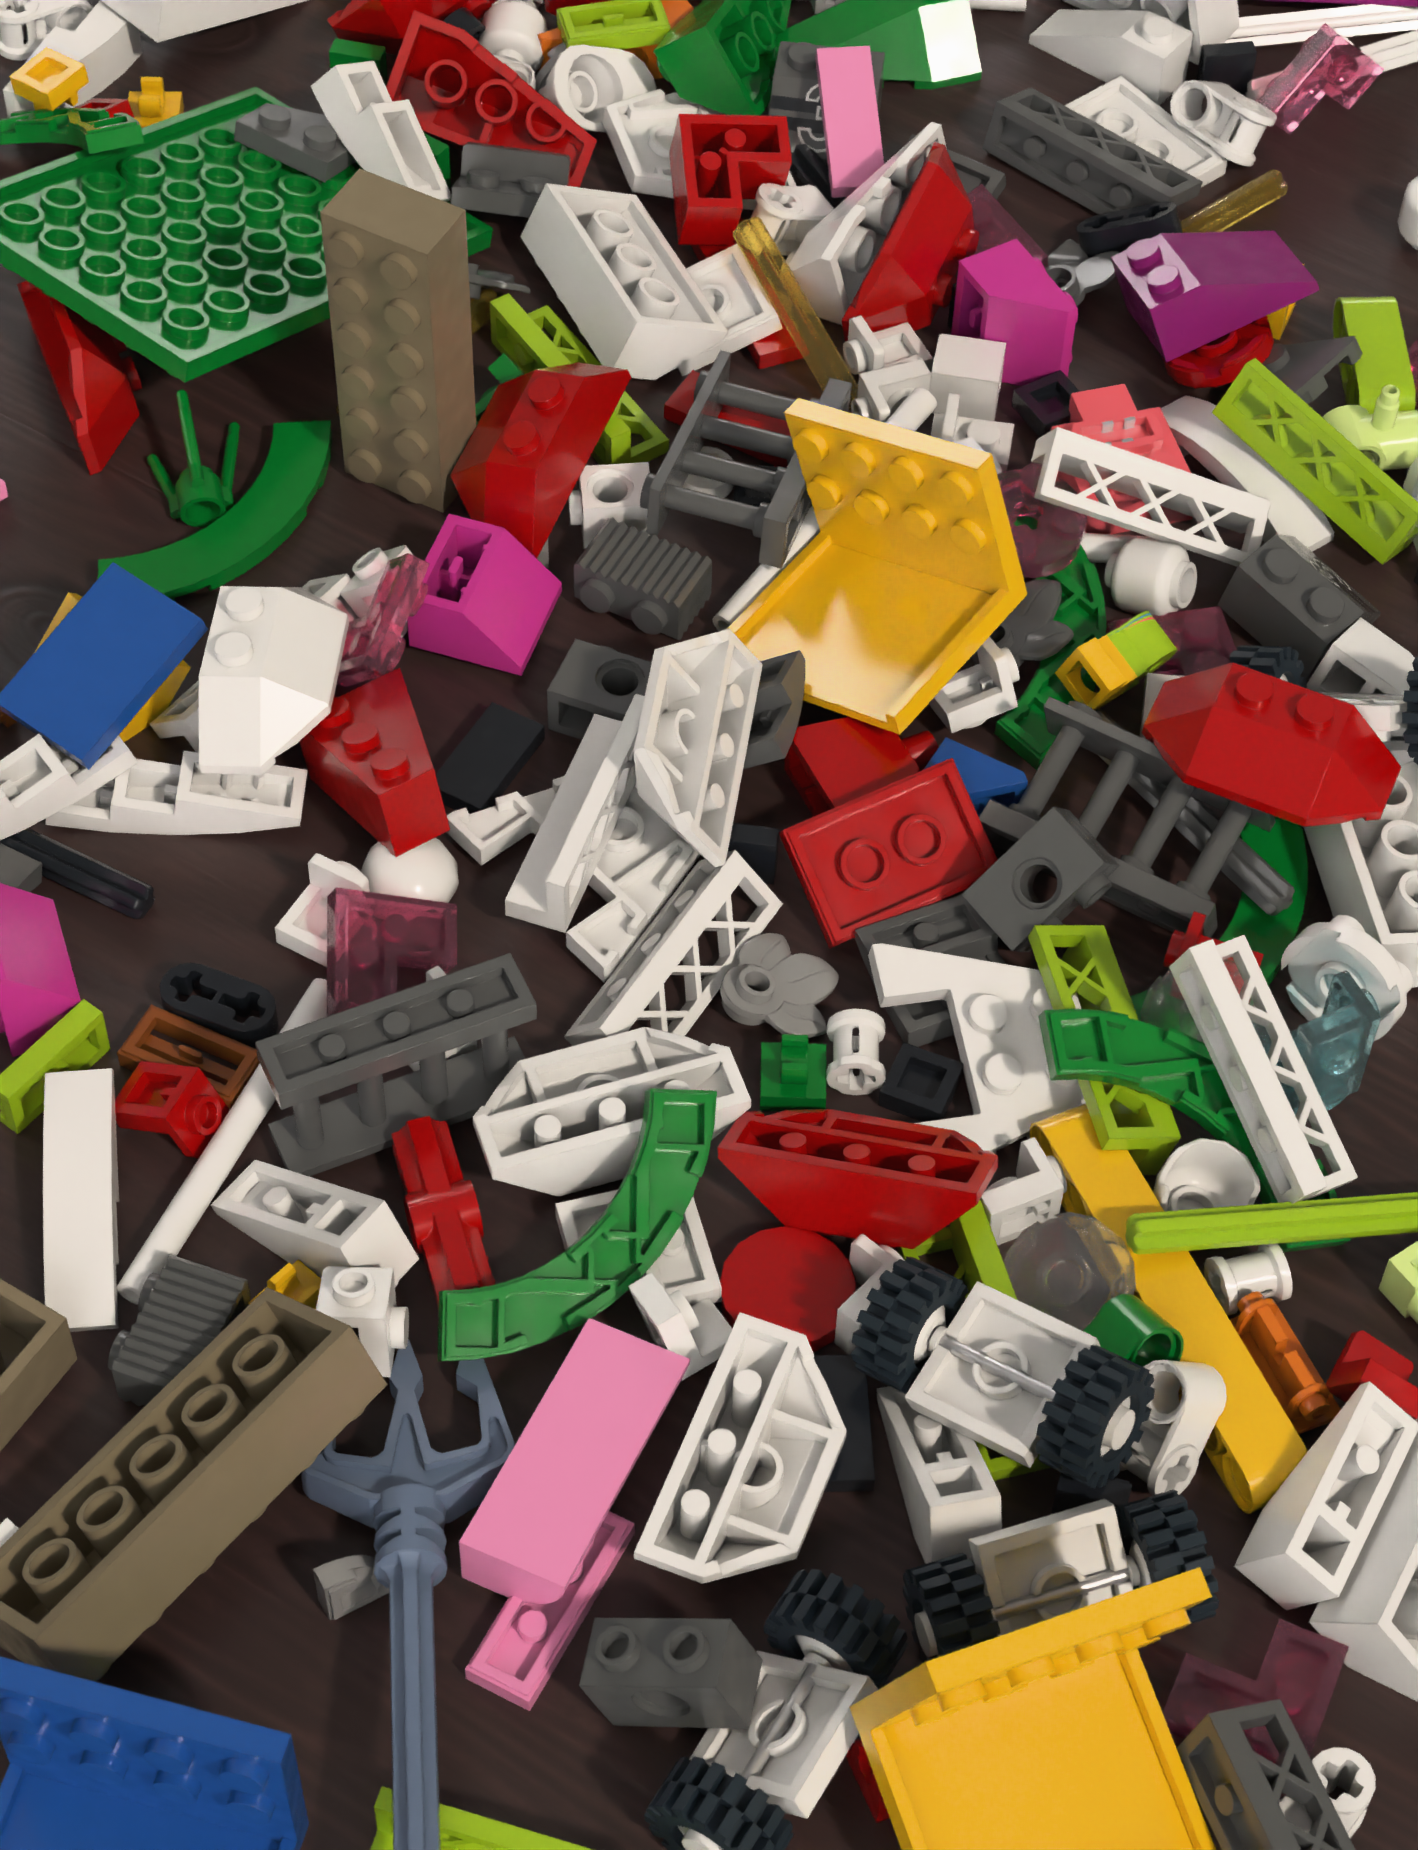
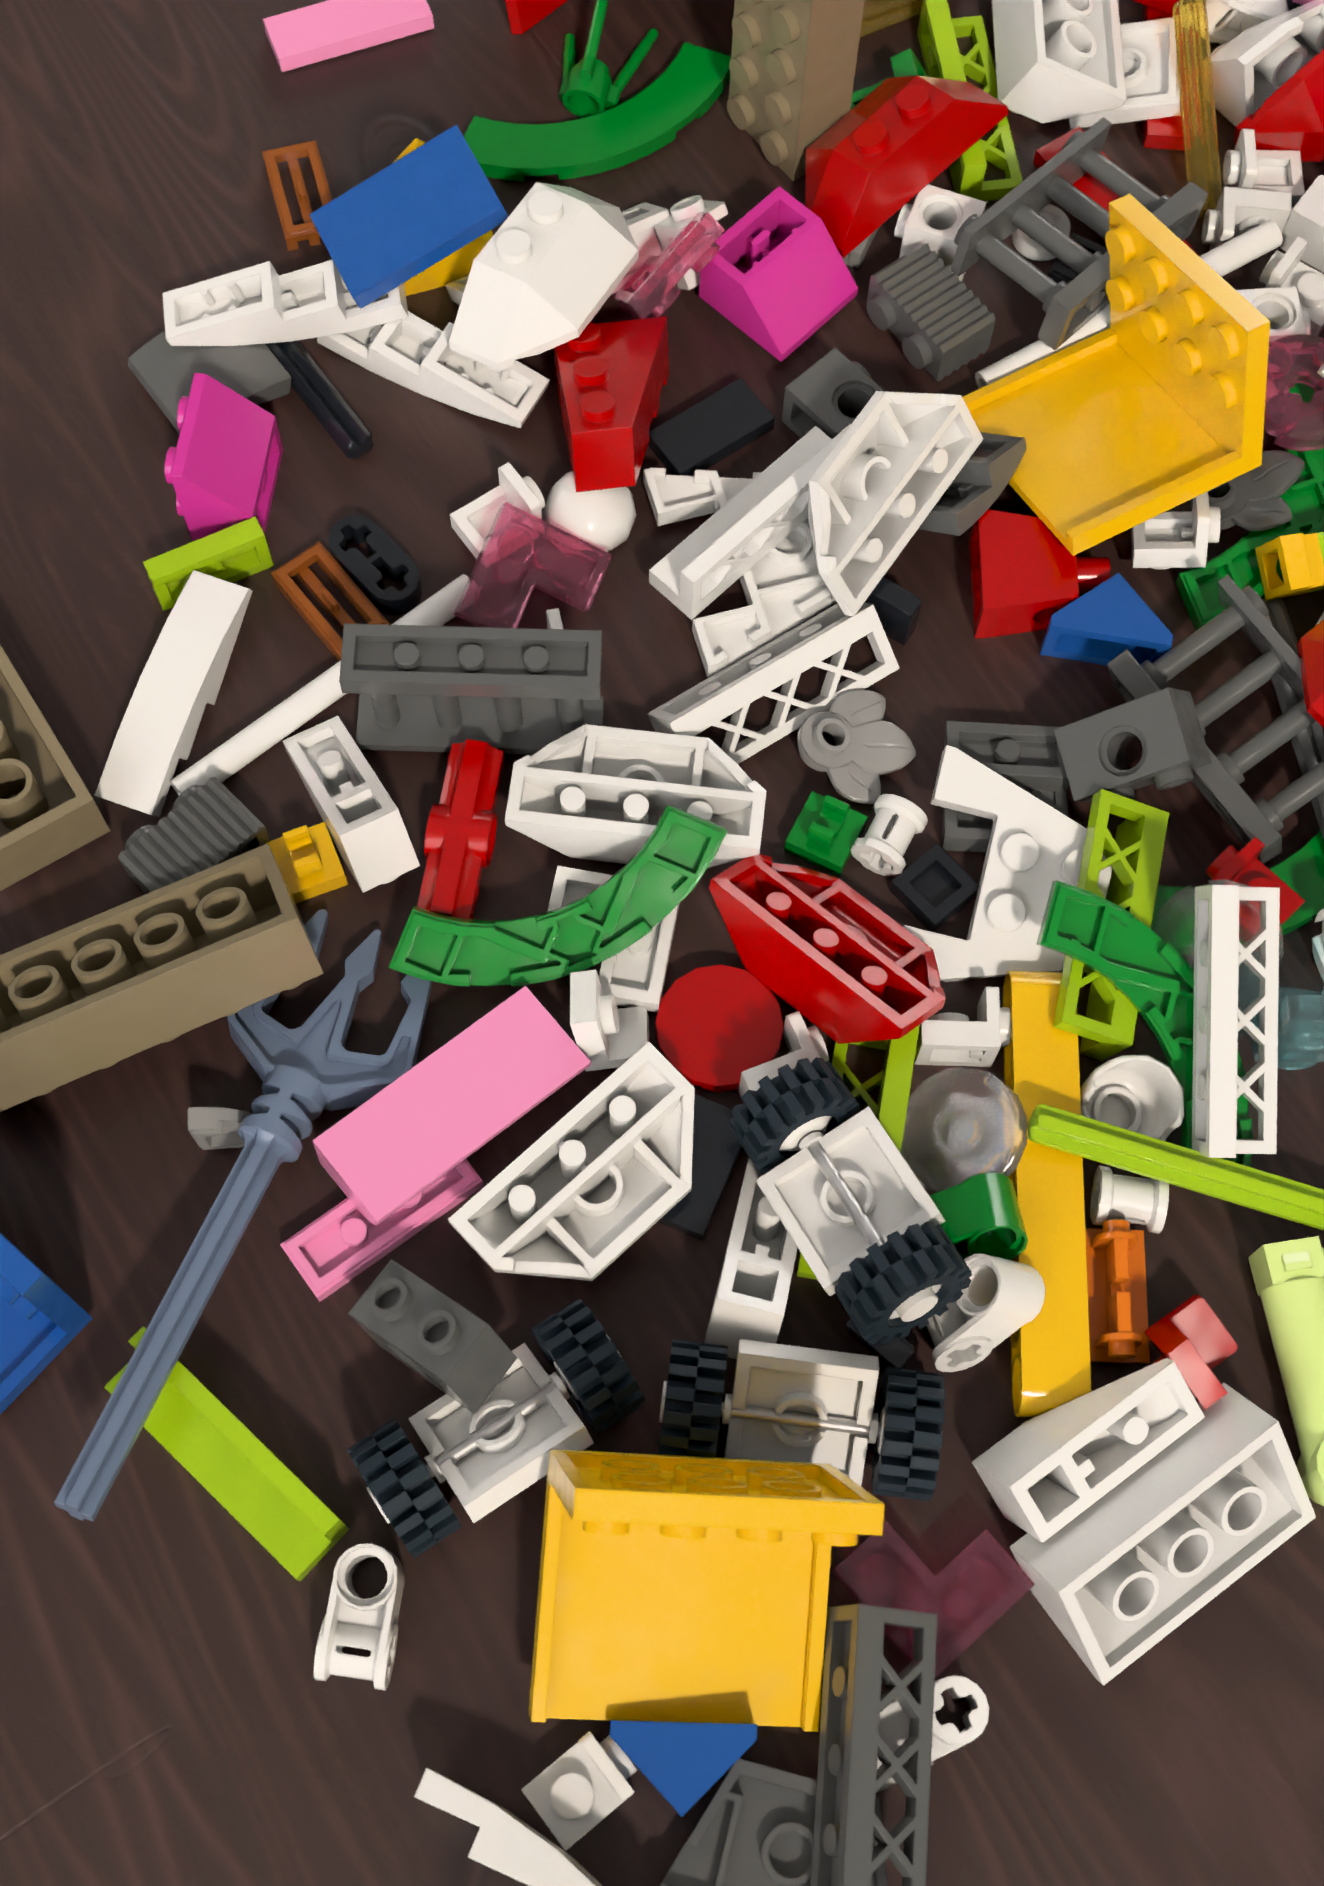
camera: 25 degrees right, 15 degrees up
(171, 1102) = (290, 640): red bracket -> none
(367, 1302) = (346, 896): white bracket -> none
(889, 851) = (1013, 661): red tile -> none

